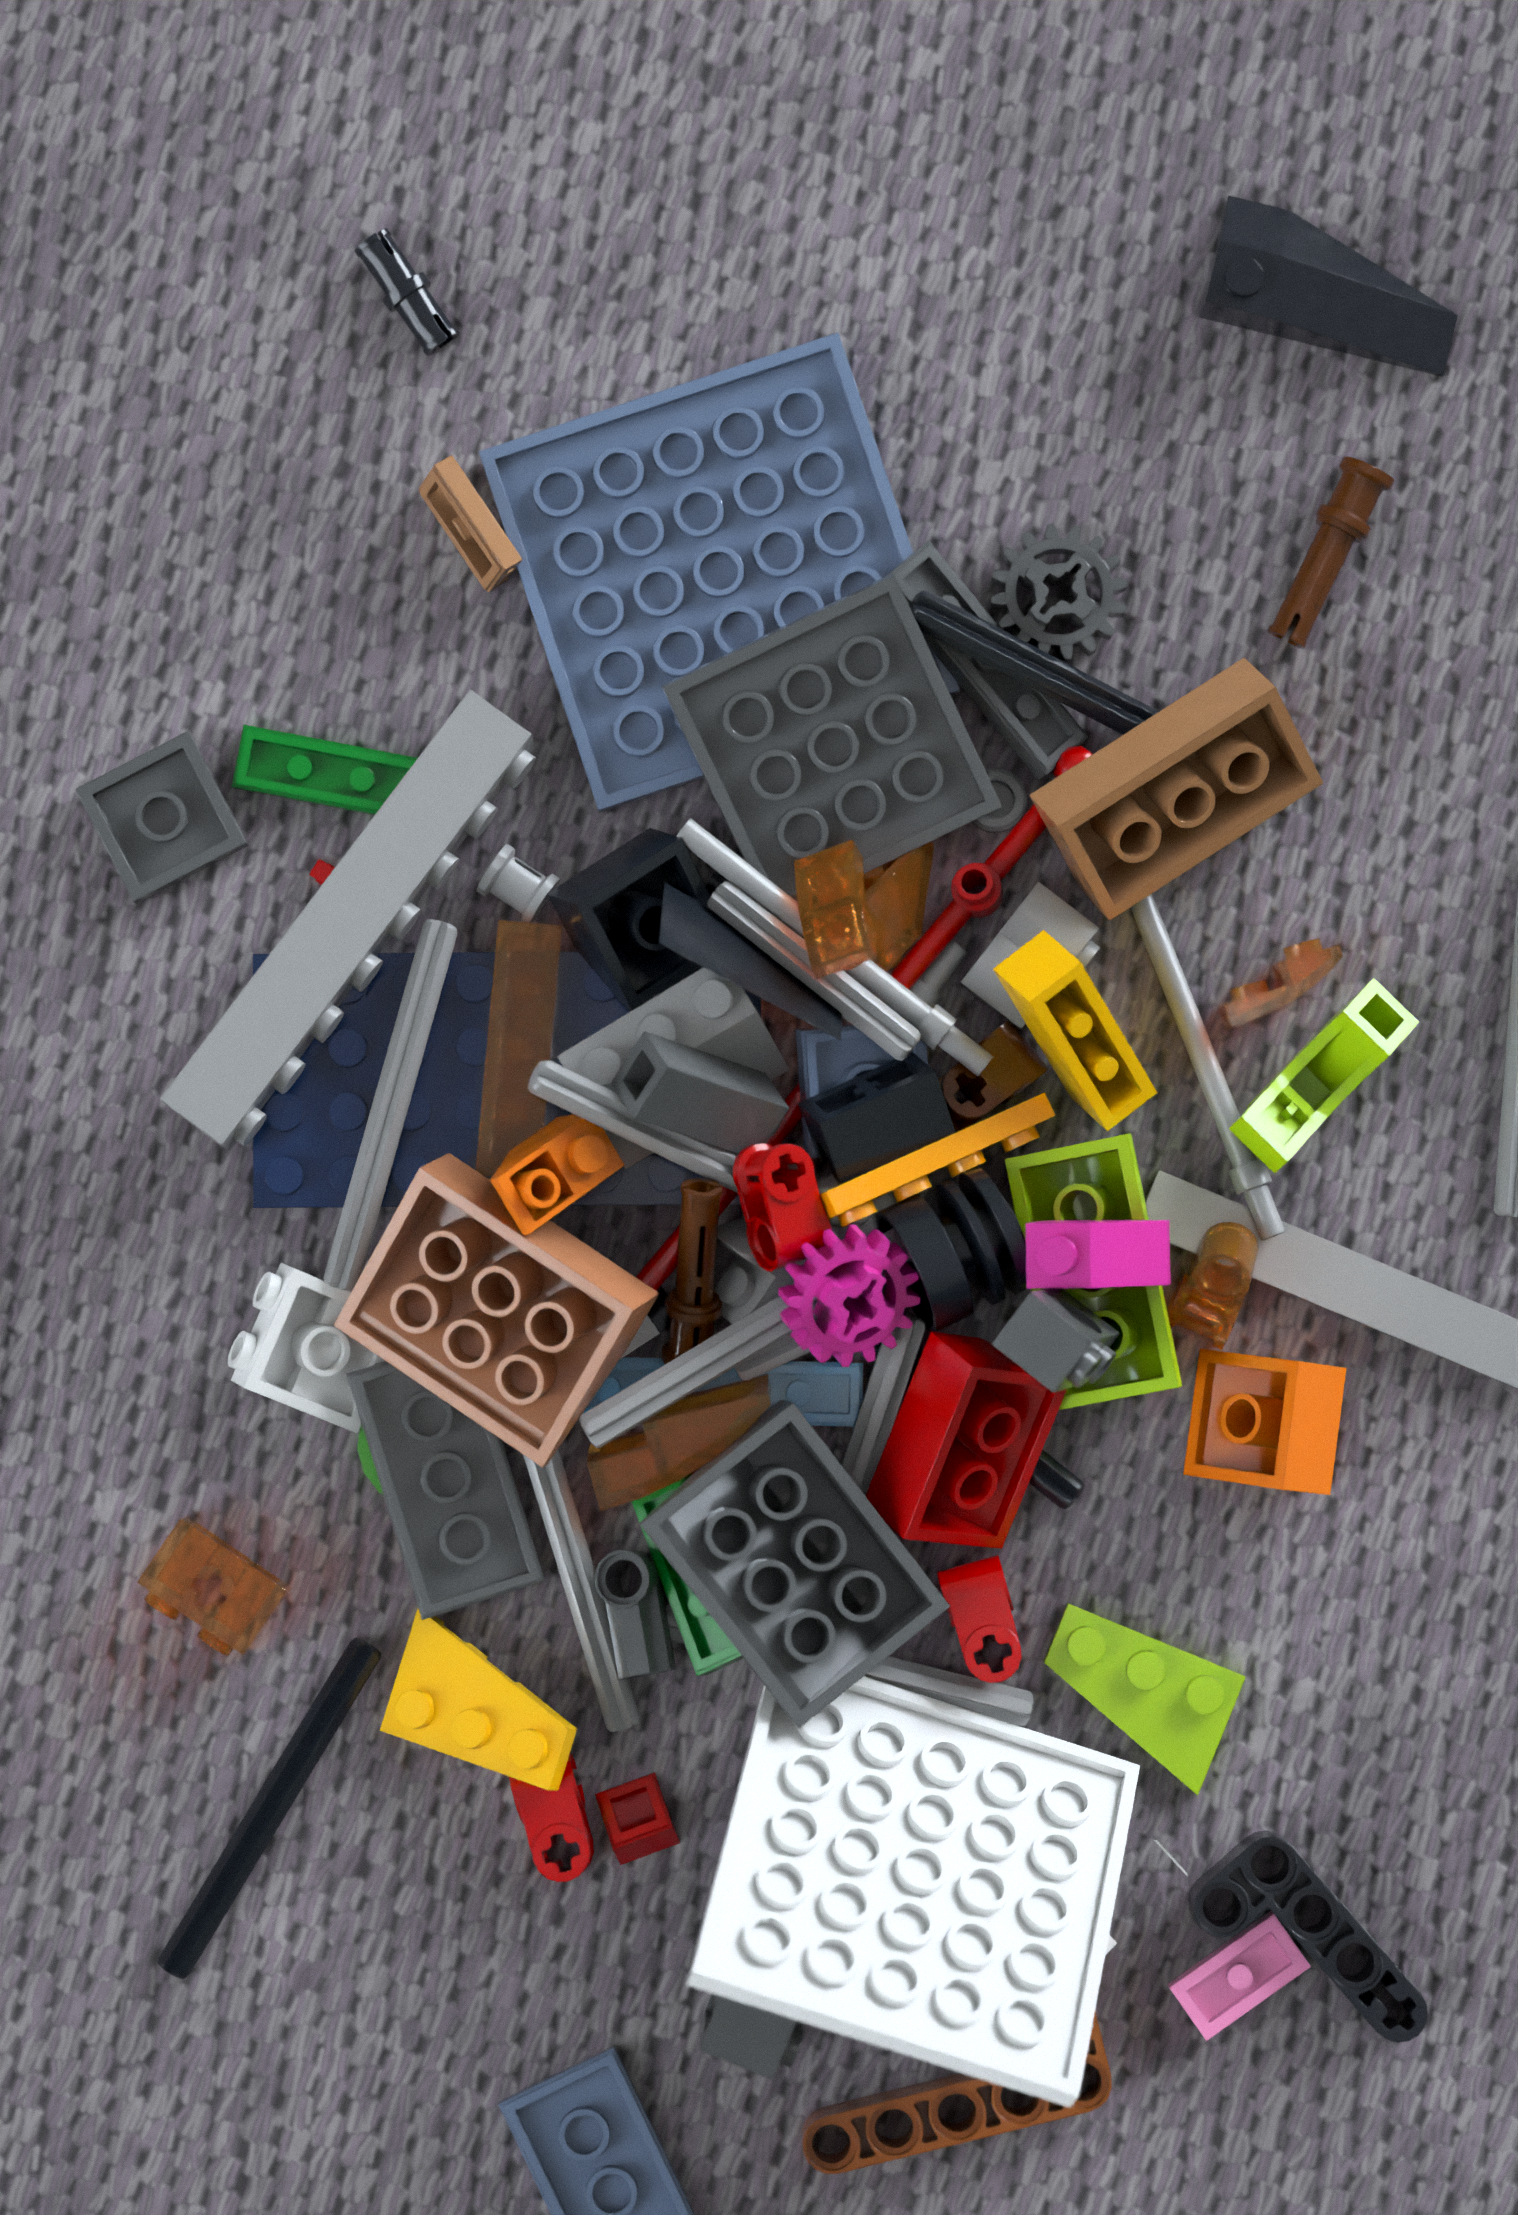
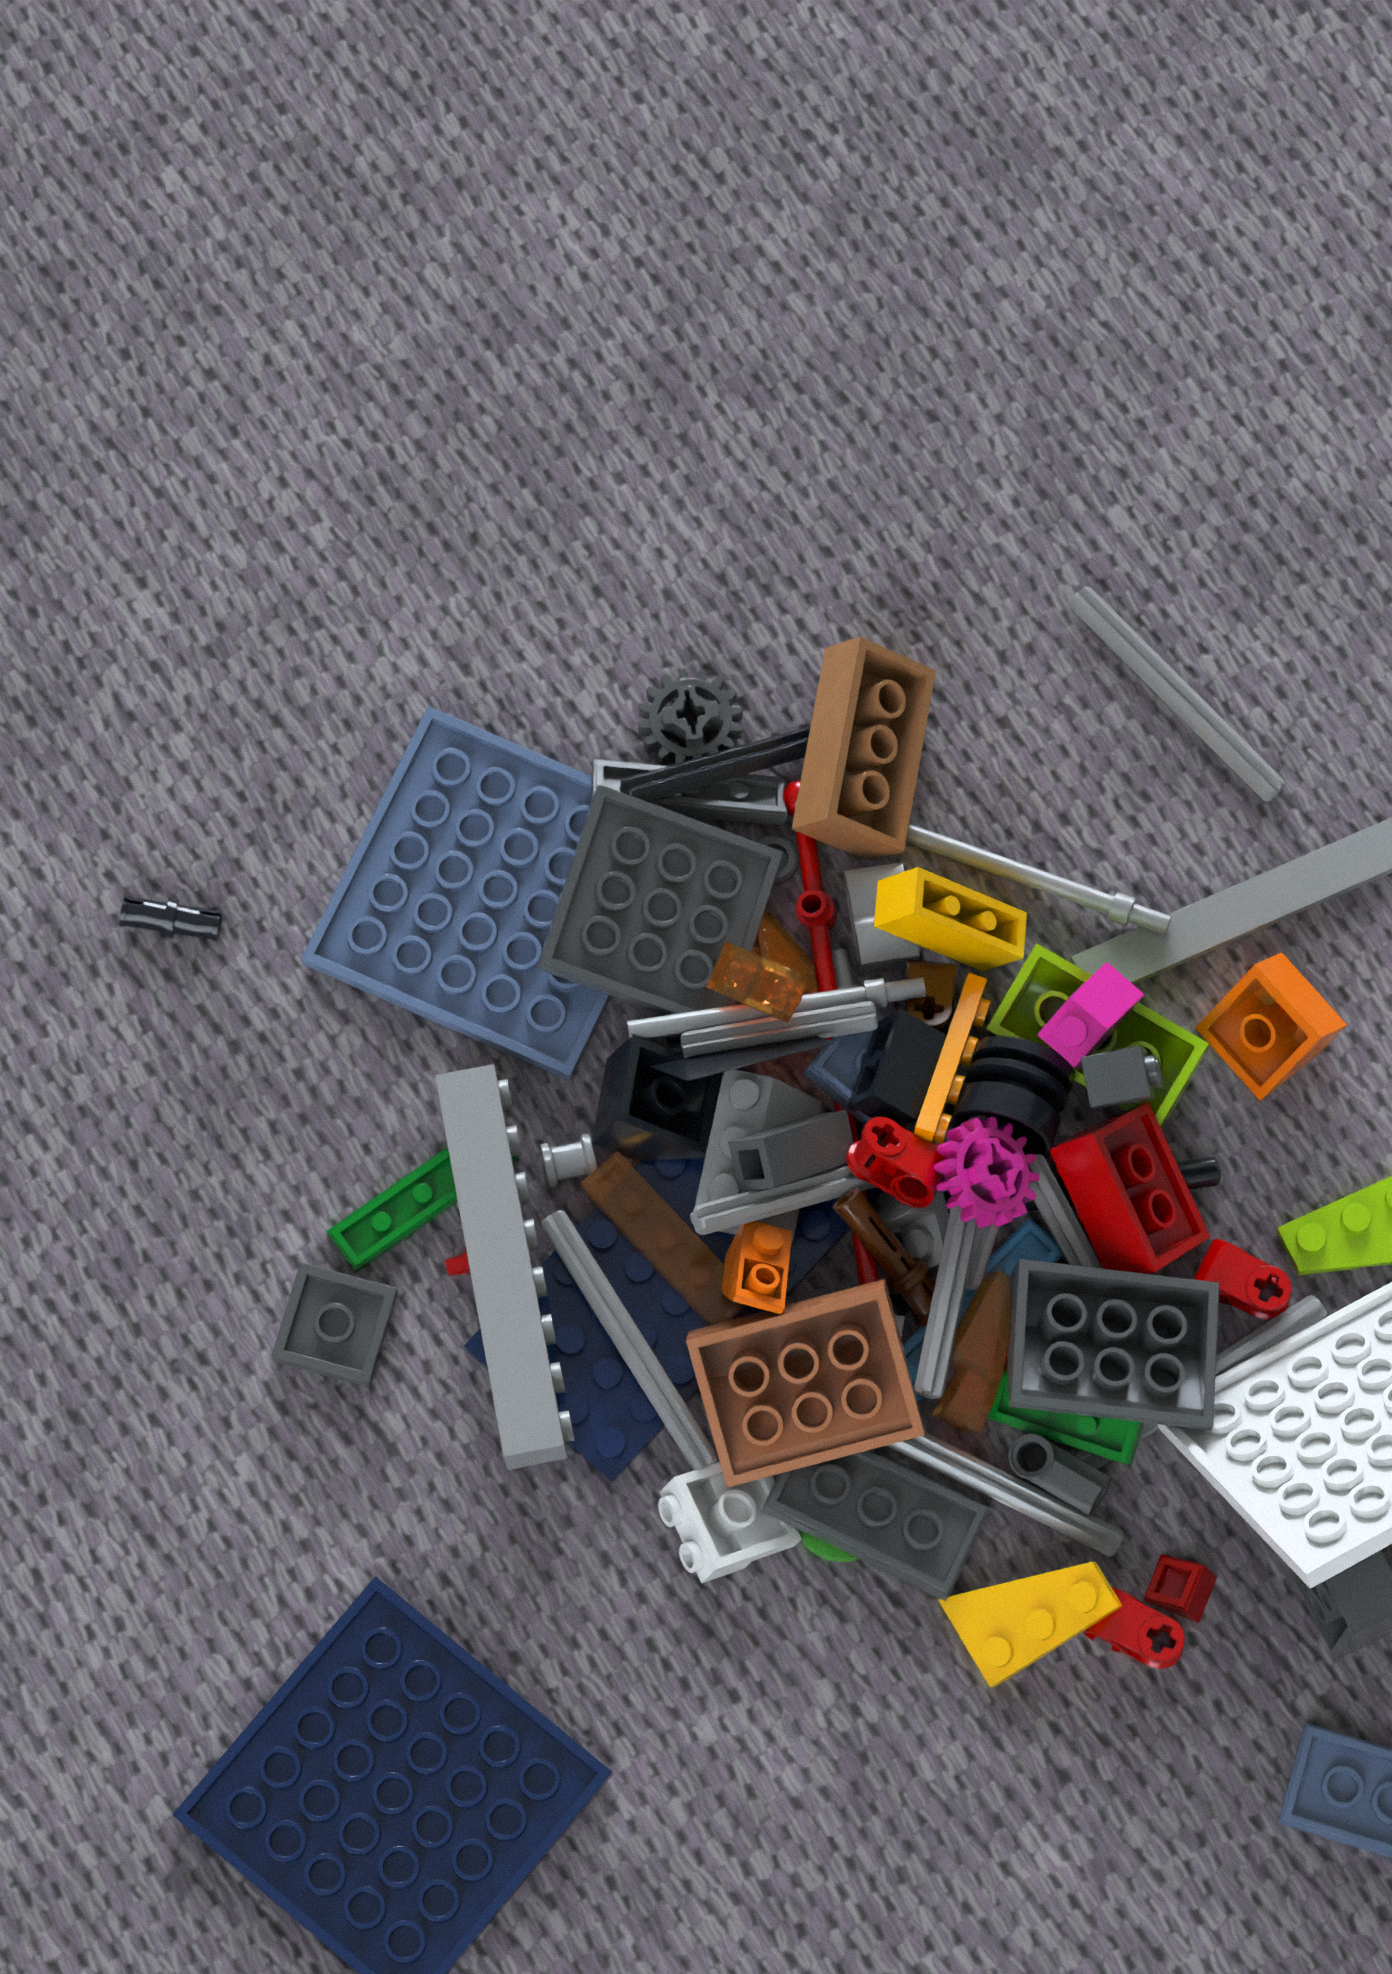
camera: 45 degrees left, 15 degrees down
(198, 1553) = (833, 1683): clear orange brick -> none
(269, 1808) = (977, 1797): black axle -> none
(469, 524) = (337, 1000): medium nougat tile -> none
(1210, 1292) = (1171, 988): clear orange piece -> none
(1303, 968) = (1029, 786): clear orange slope -> none
(1307, 287) = (646, 445): black wedge -> none
(1323, 1075) = (1100, 815): lime arch -> none
(1340, 525) = (799, 541): reddish brown pin -> none

